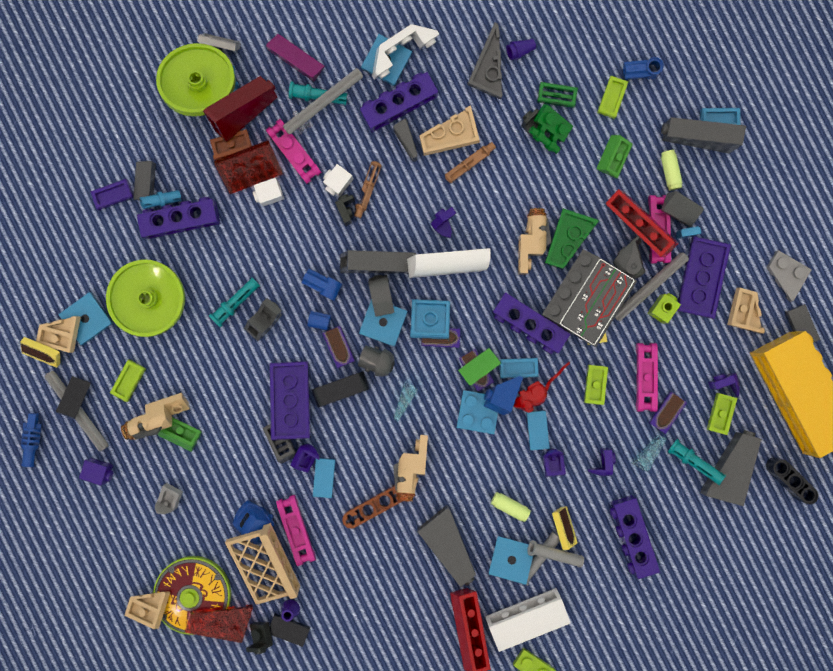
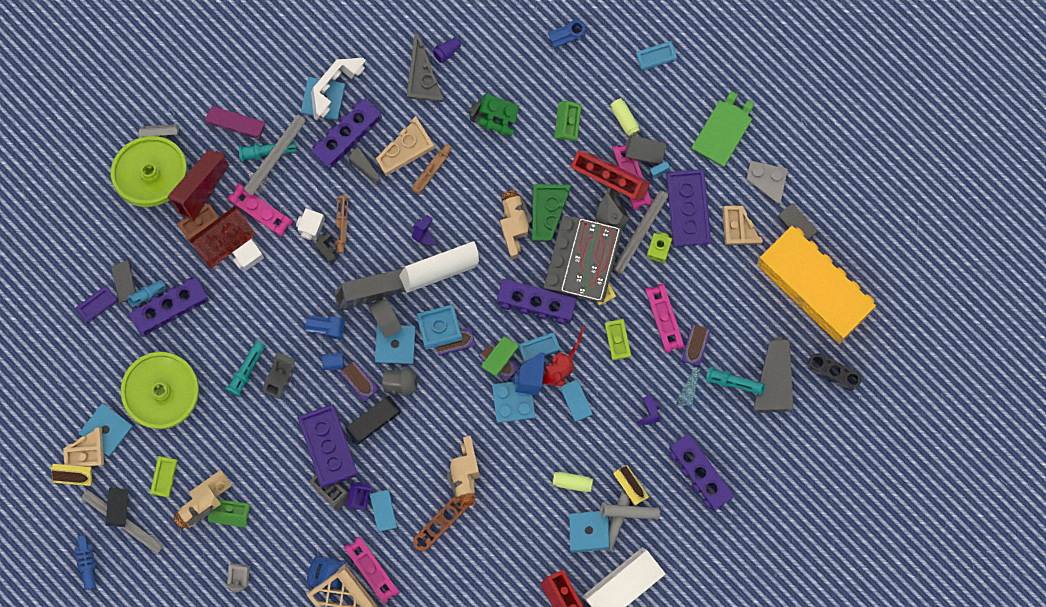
camera: 15 degrees left, 10 degrees down
(96, 471) = (160, 572): dark purple brick -> none
(406, 397) = (440, 403): clear light blue slope -> none
(447, 544) = (521, 535): dark grey slope -> none
(540, 99) = (497, 81): green tile -> none
(554, 463) = (601, 426): dark purple plate -> none
(612, 97) = (548, 67): lime tile -> none
(704, 134) = (642, 76): dark grey slope -> none
(721, 413) = (747, 330): lime plate -> none
(723, 380) = (737, 298): dark purple plate -> none
(762, 212) = (723, 130): none -> bright green tile

